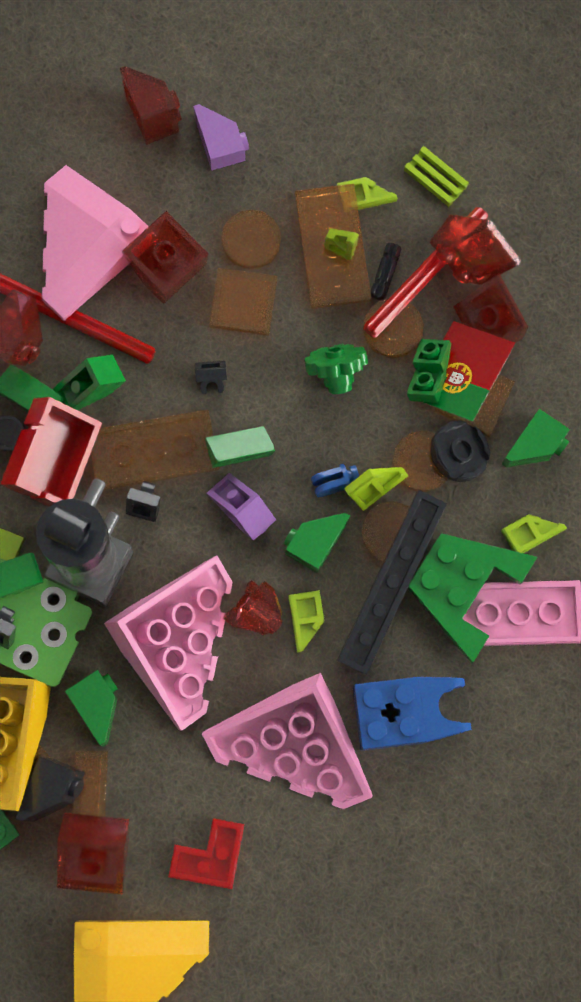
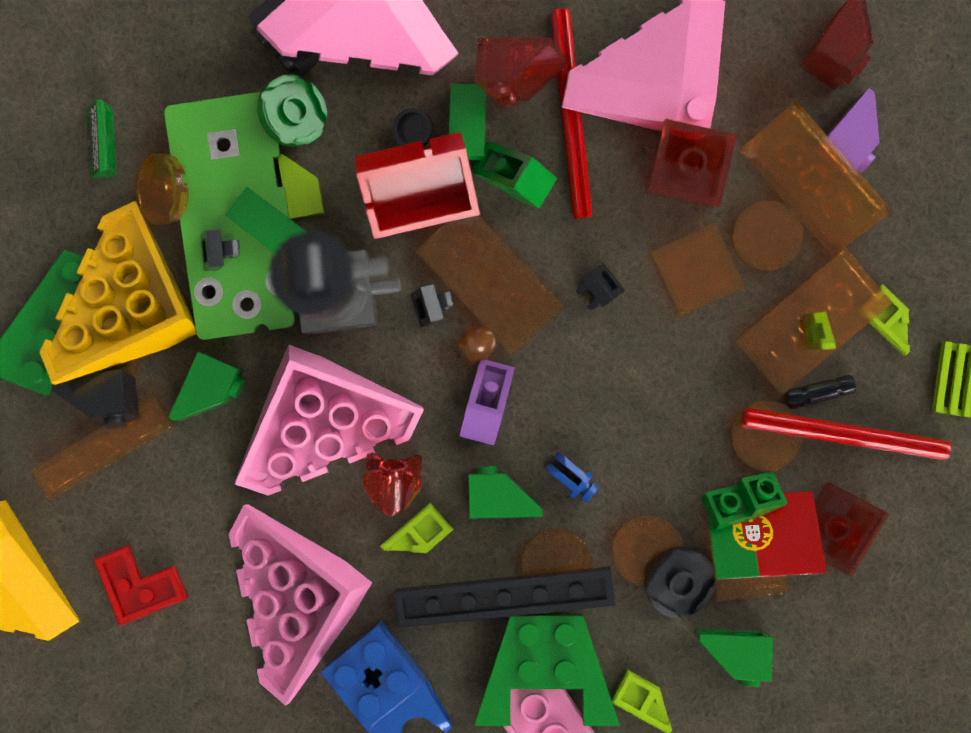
camera: 65 degrees right, 10 degrees up
(92, 853) = (66, 476): clear red slope -> none
(194, 485) = (477, 343): none -> clear orange plate
(232, 181) = (815, 179): none -> clear orange tile
(239, 446) = (545, 361): slope -> none
(336, 366) = (688, 406): green plant -> none
(374, 484) = (591, 520): lime tile -> none
(473, 249) = (898, 470): clear red slope -> none

